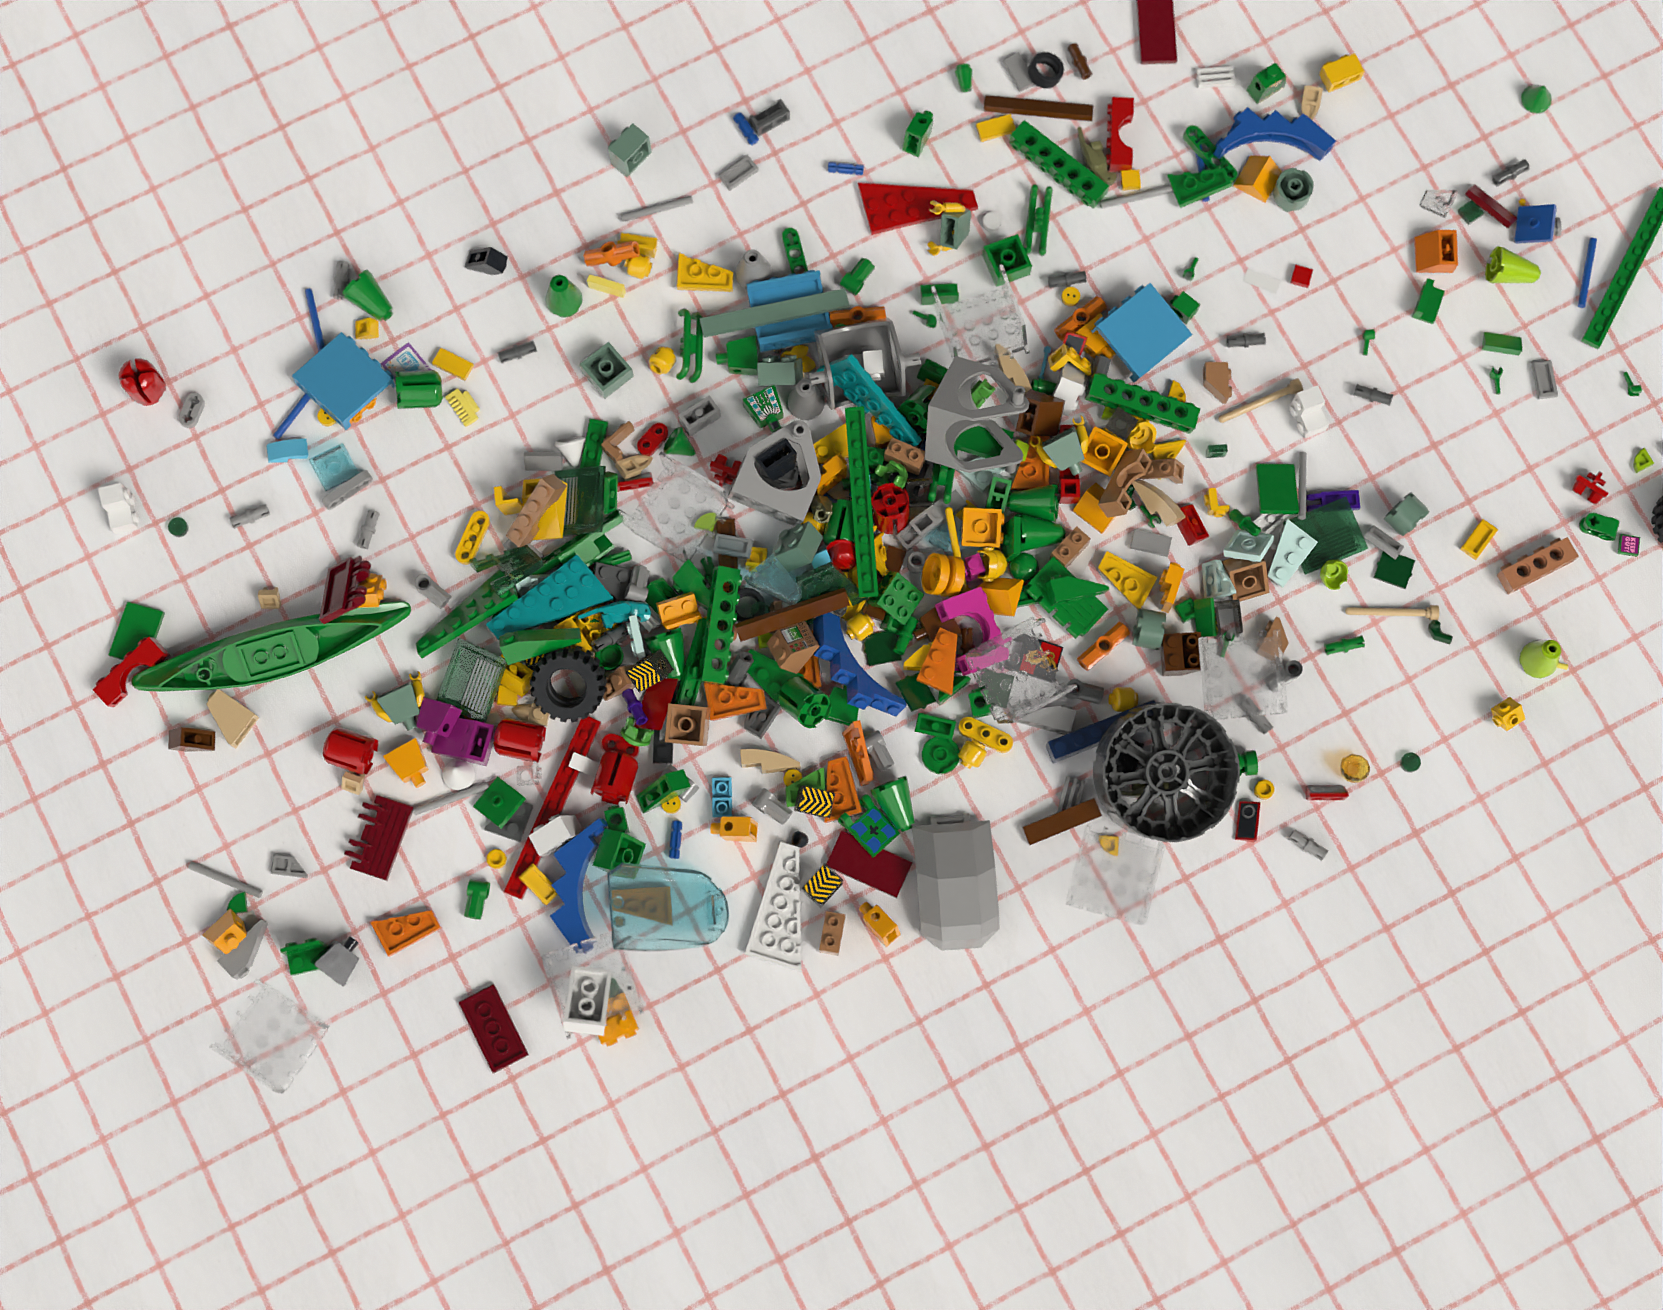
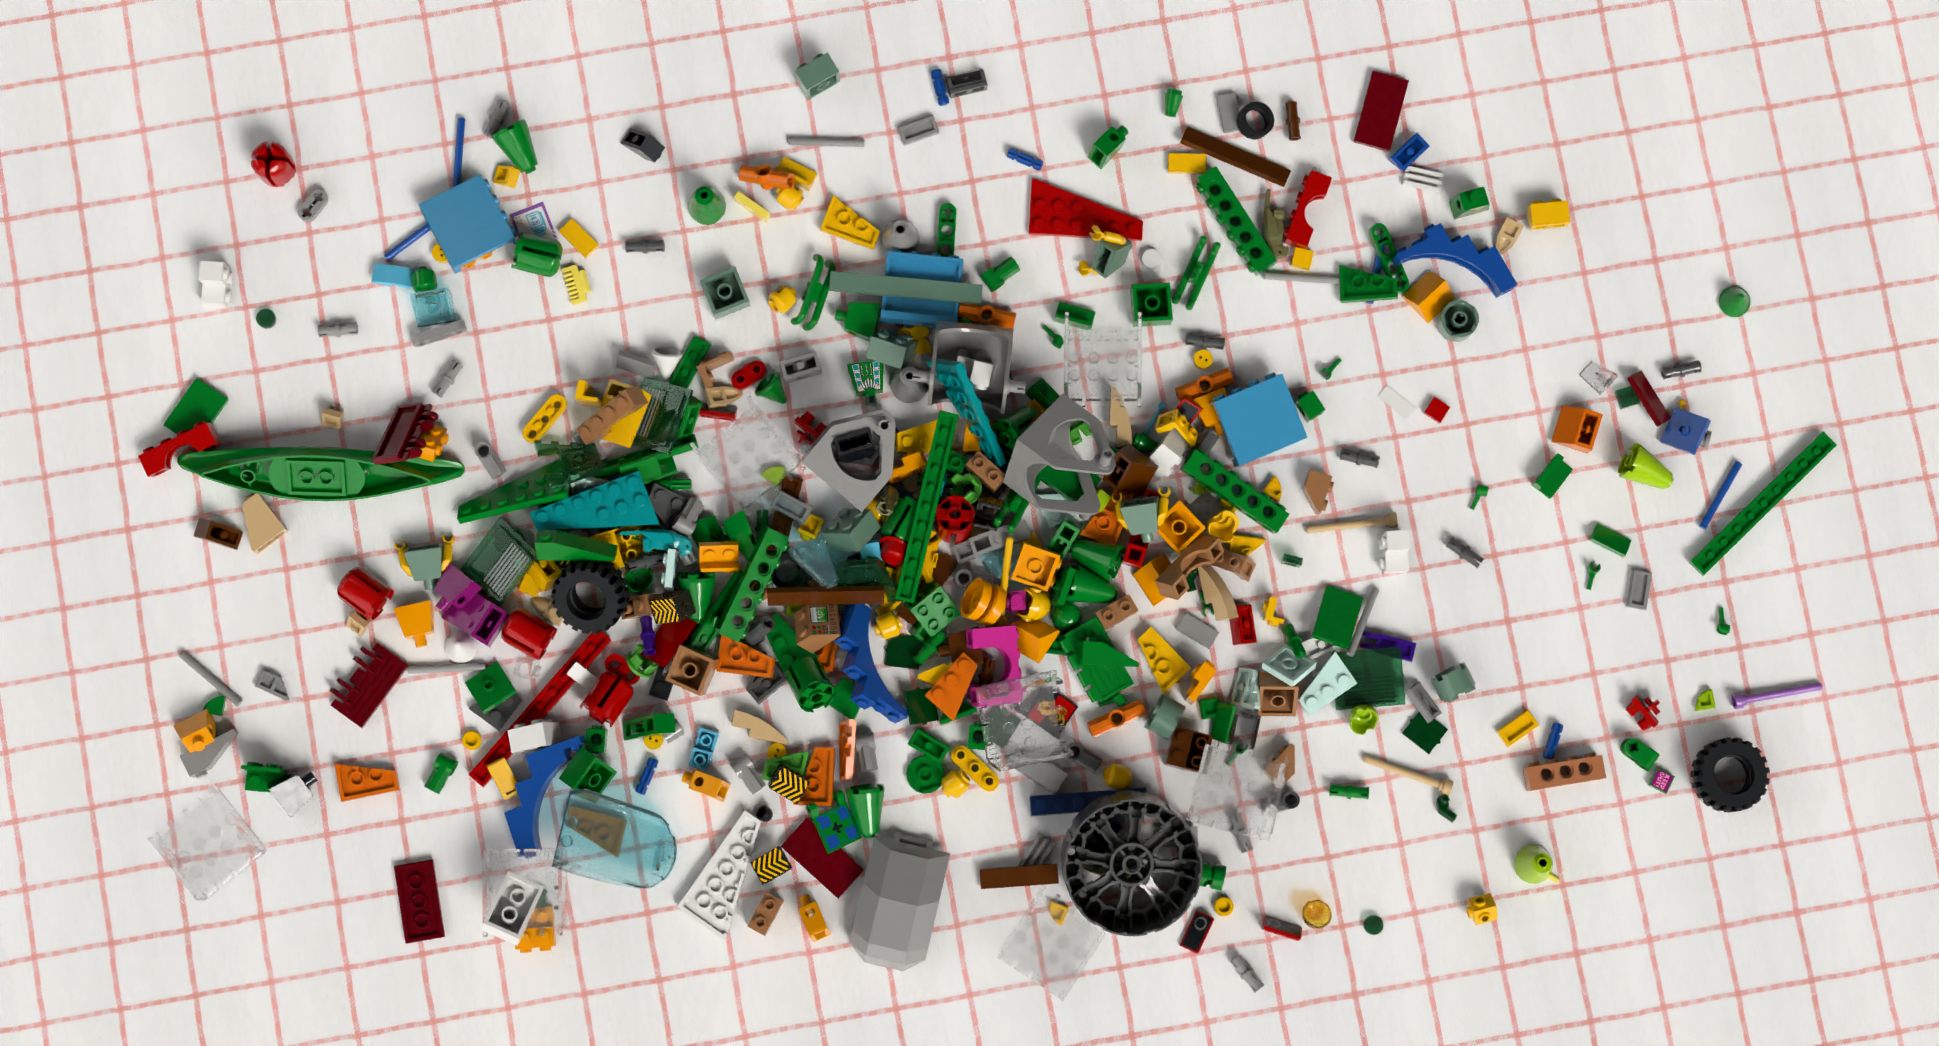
camera: 10 degrees right, 5 degrees up
(317, 443) = (423, 279): none -> green head
(1100, 628) = (1118, 699): none -> green hand
(1195, 56) = (1409, 152): none -> blue slope
(1516, 540) = (1552, 741): none -> blue axle

